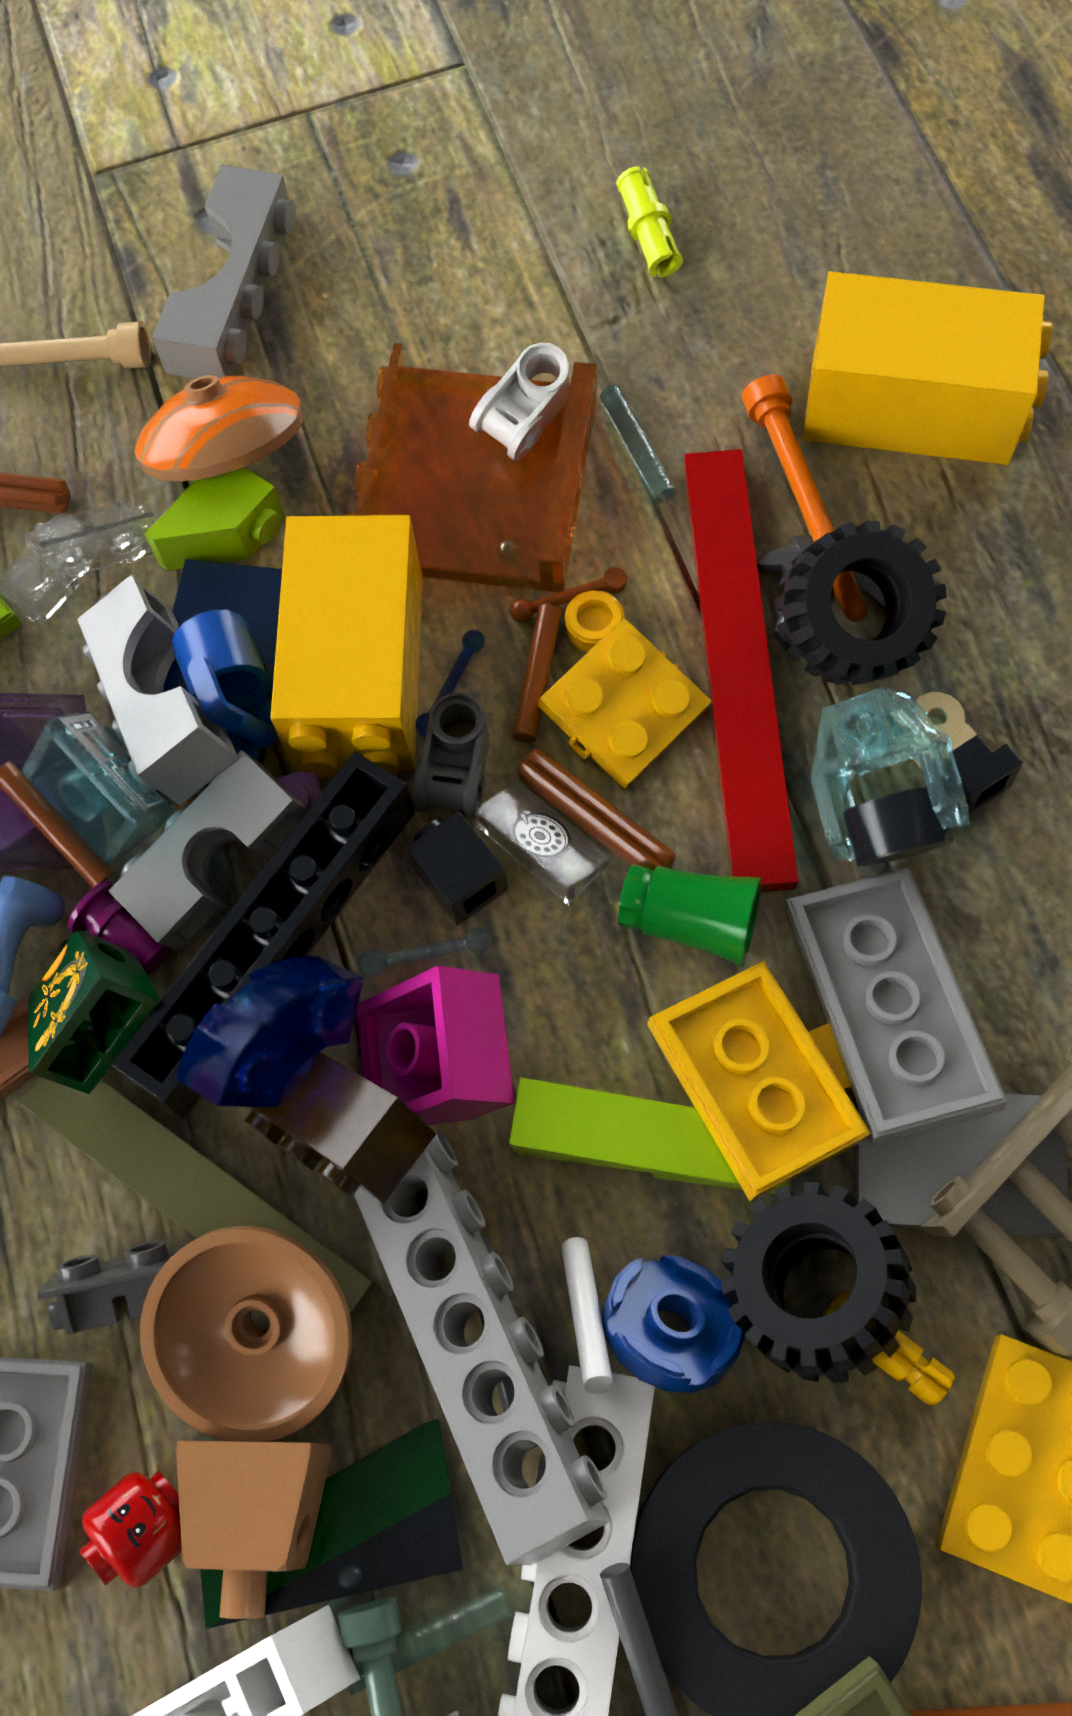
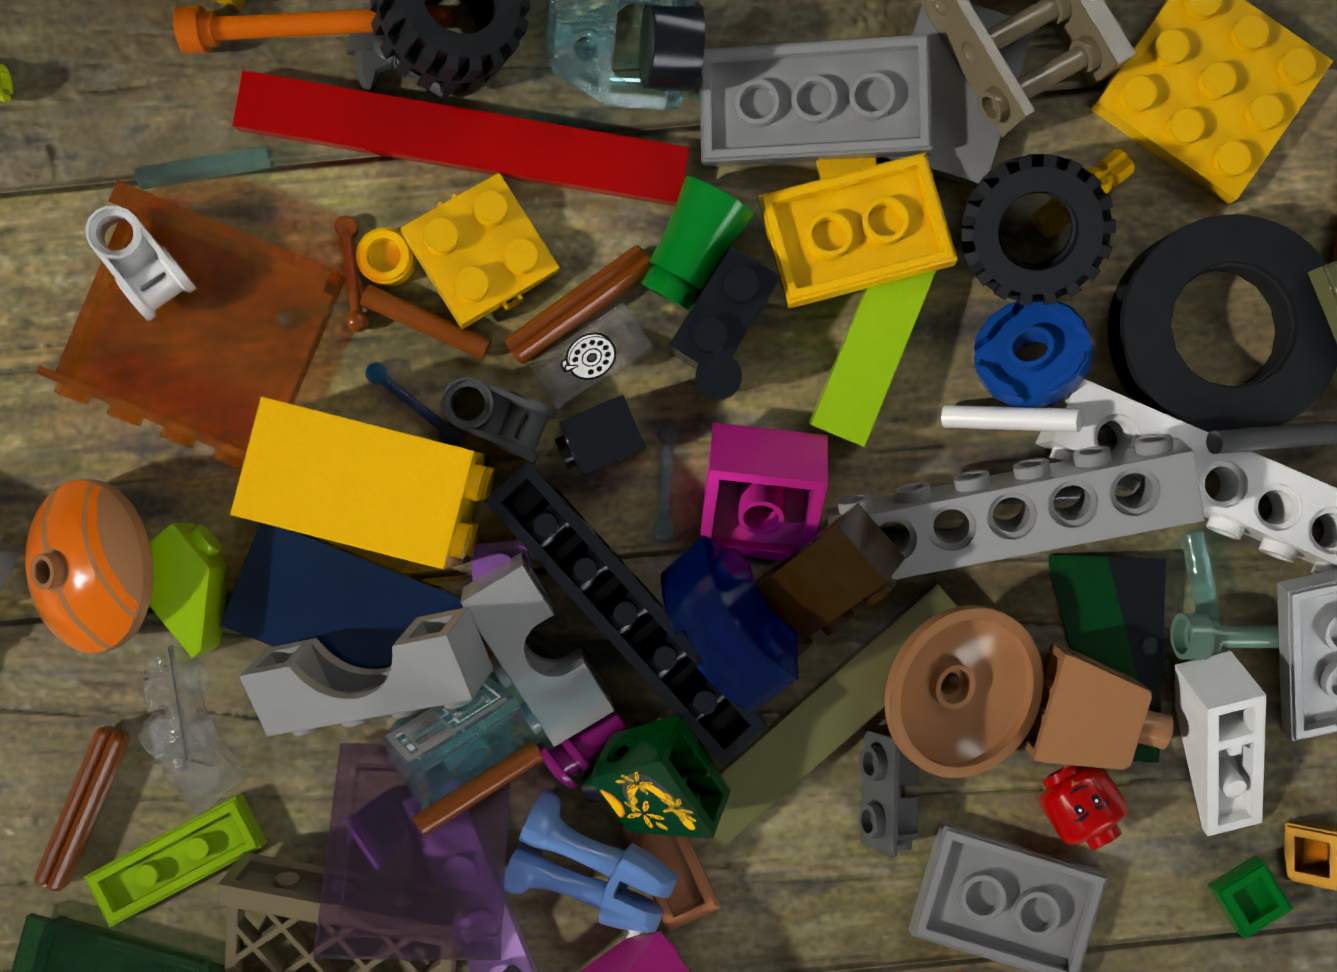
camera: 80 degrees left, 20 degrees up
(226, 674) = (369, 606): blue piece -> none
(609, 958) = (722, 321): none -> black hinge

